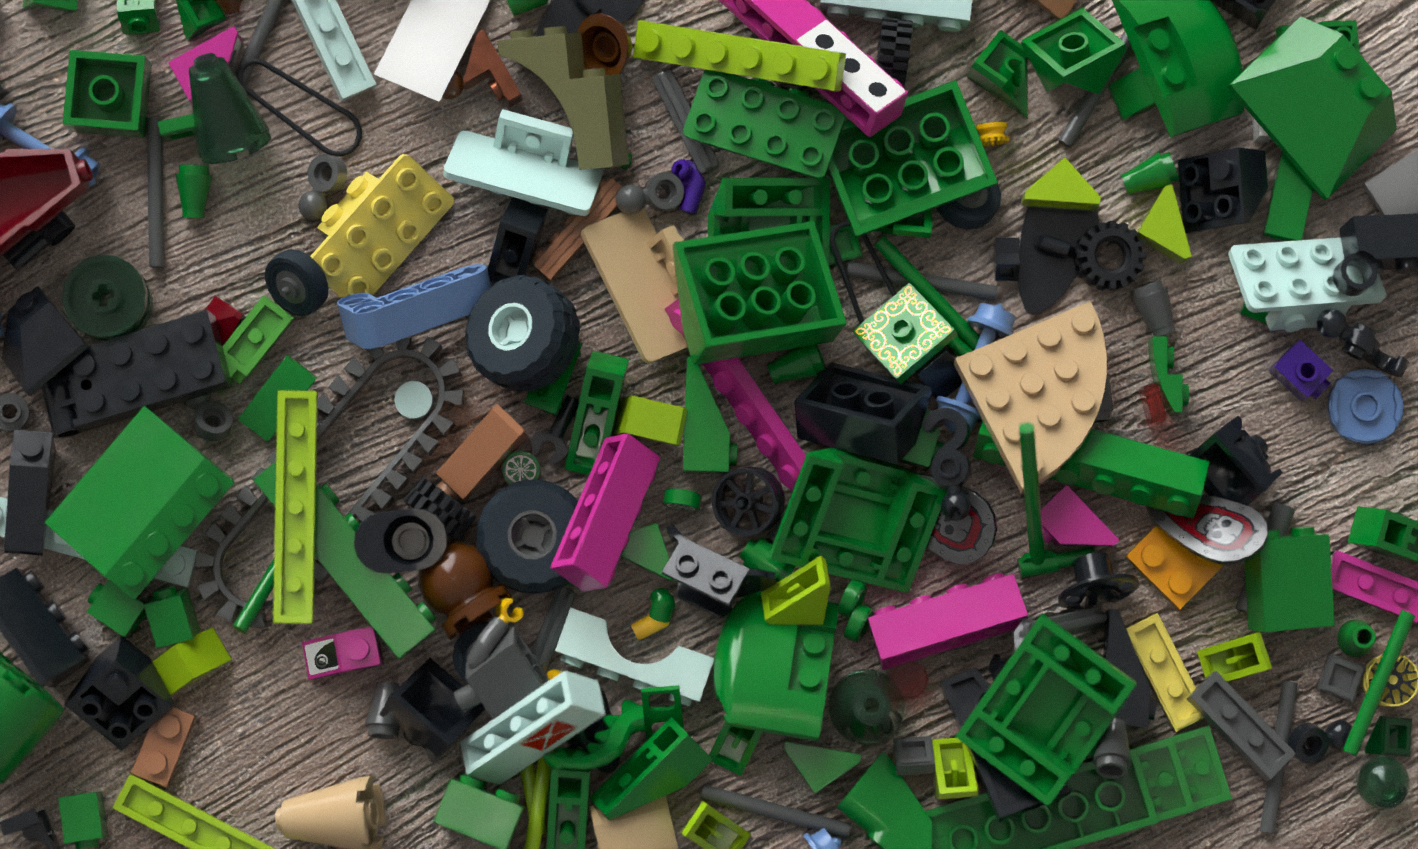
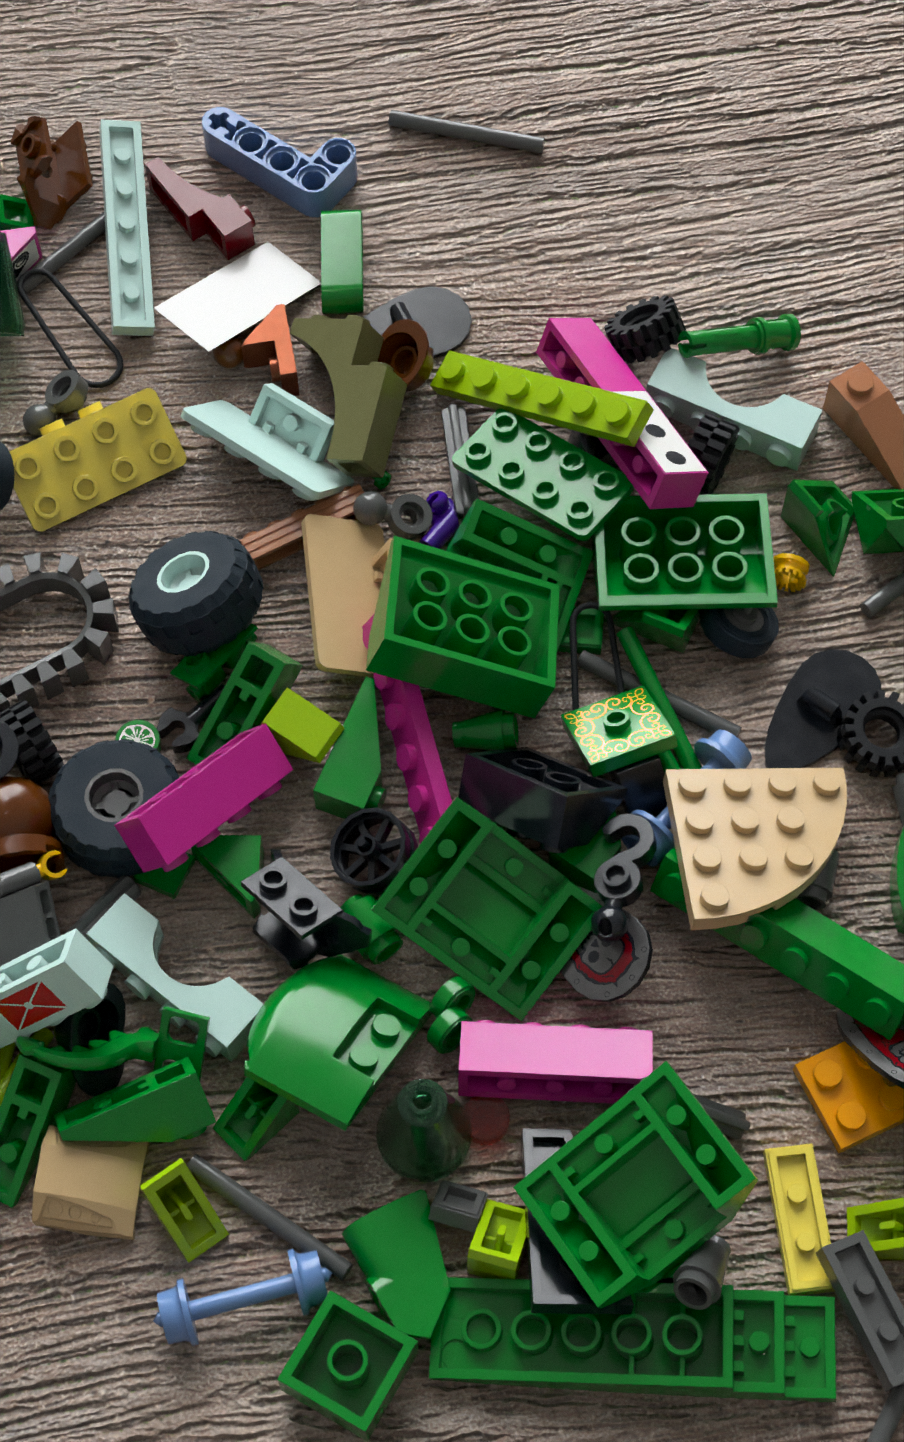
camera: 25 degrees right, 20 degrees down
(413, 400) = (53, 633): light aqua tile -> none
(414, 309) = (91, 532): medium blue beam -> none
(481, 454) = (101, 701): nougat slope -> none
(516, 239) = (236, 504): black slope -> none
(659, 615) = (224, 945): arm -> none
(682, 499) = (300, 829): green tile -> none
(799, 597) = (389, 969): lime slope -> none
(818, 764) = (343, 1176): green slope -> none
(1006, 259) = (762, 700): black piece -> none
(1038, 560) = (687, 1033): green bar -> none
(1063, 189) = (847, 647): lime slope -> none
(1072, 524) = (741, 1004): dark pink slope -> none
(1095, 578) = (750, 1075): black wheel -> none
(1121, 654) = (753, 1223): black slope -> none
(1152, 404) = (880, 905): clear red tile -> none

